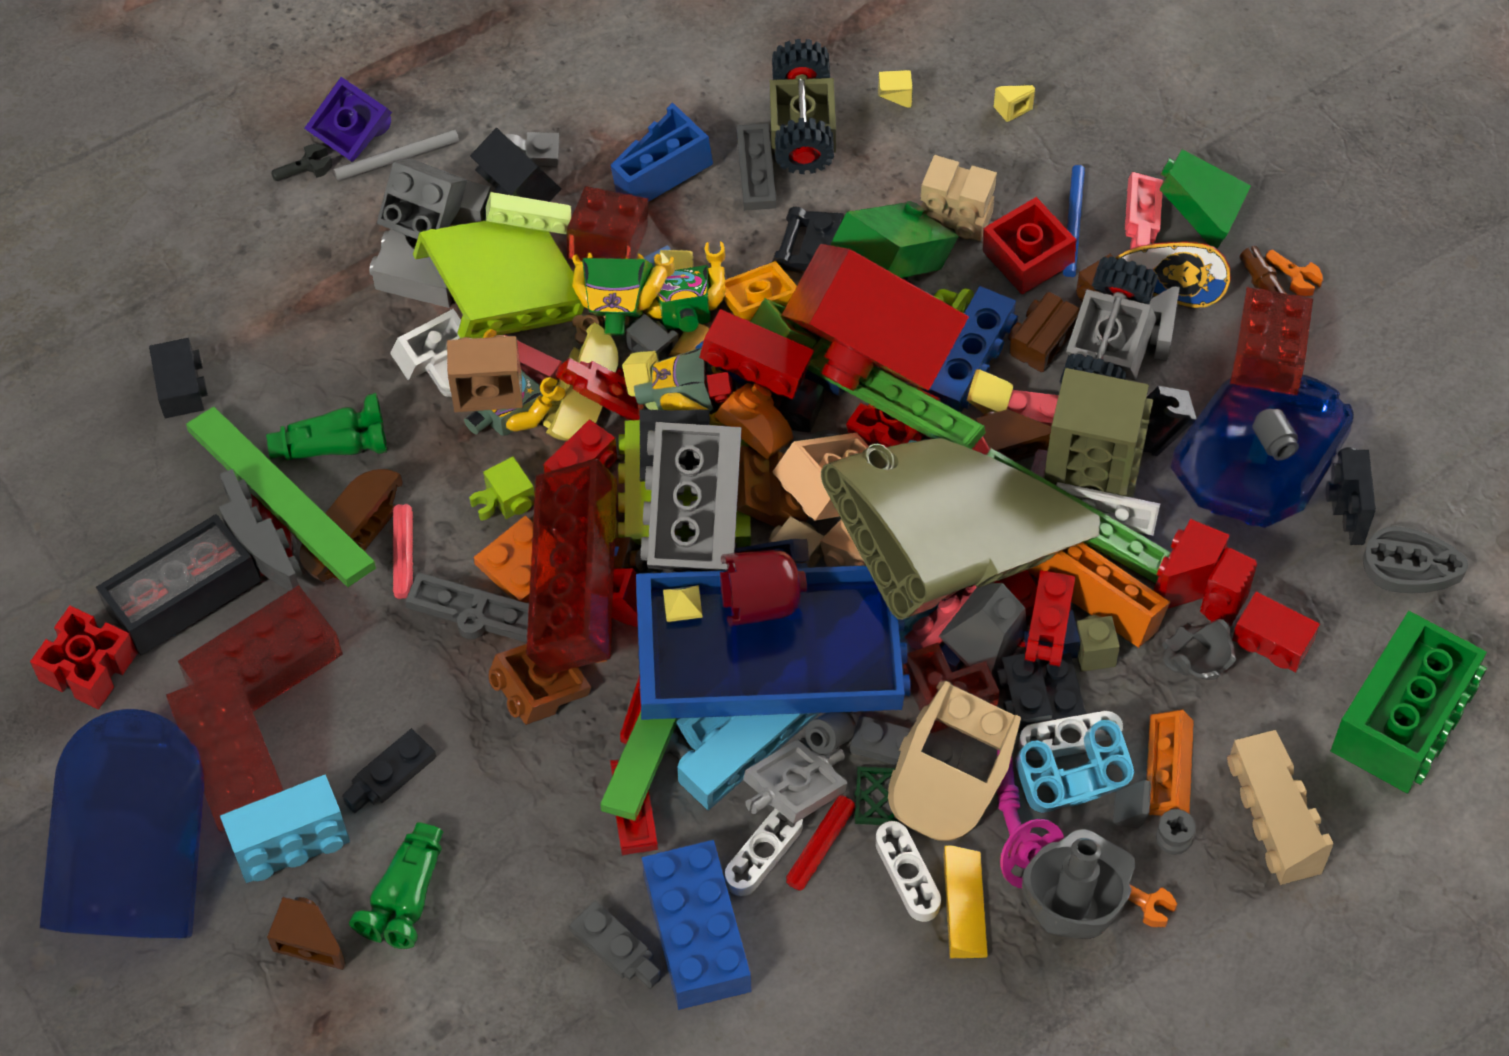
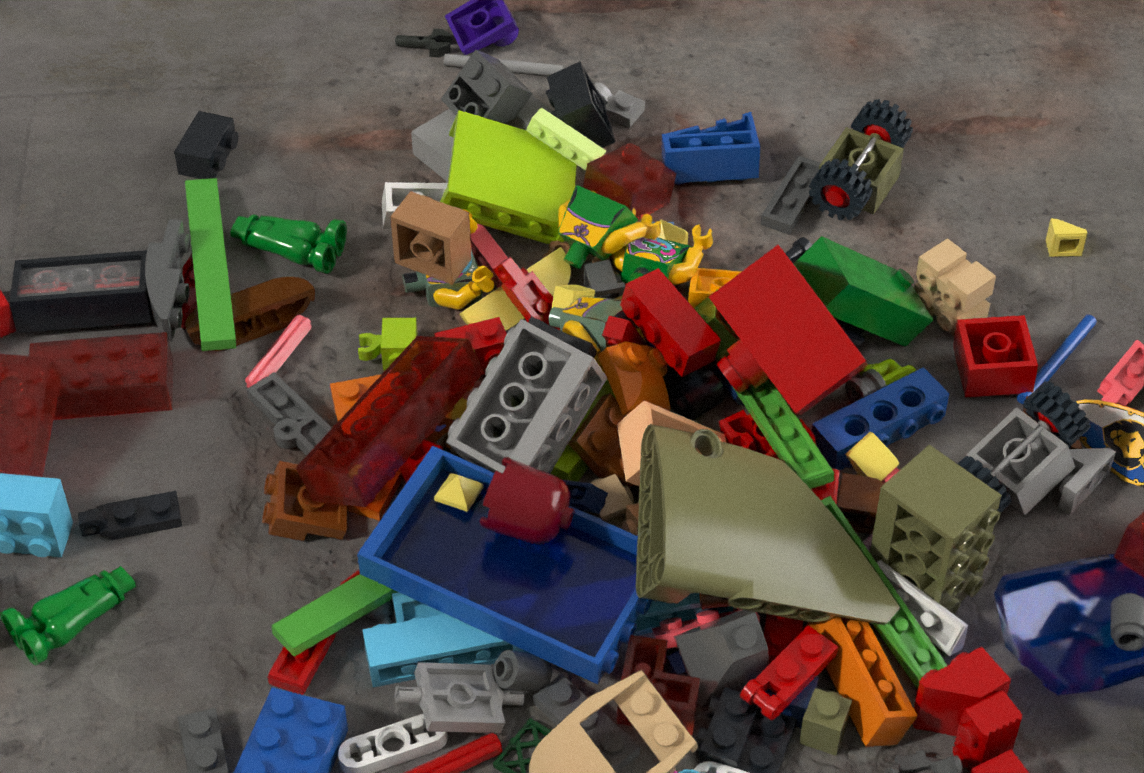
camera: 30 degrees right, 10 degrees down
(896, 87) = (962, 184): light yellow slope -> none
(1043, 332) = (960, 430): reddish brown brick -> none
(1169, 418) = (1020, 548): black hinge -> none

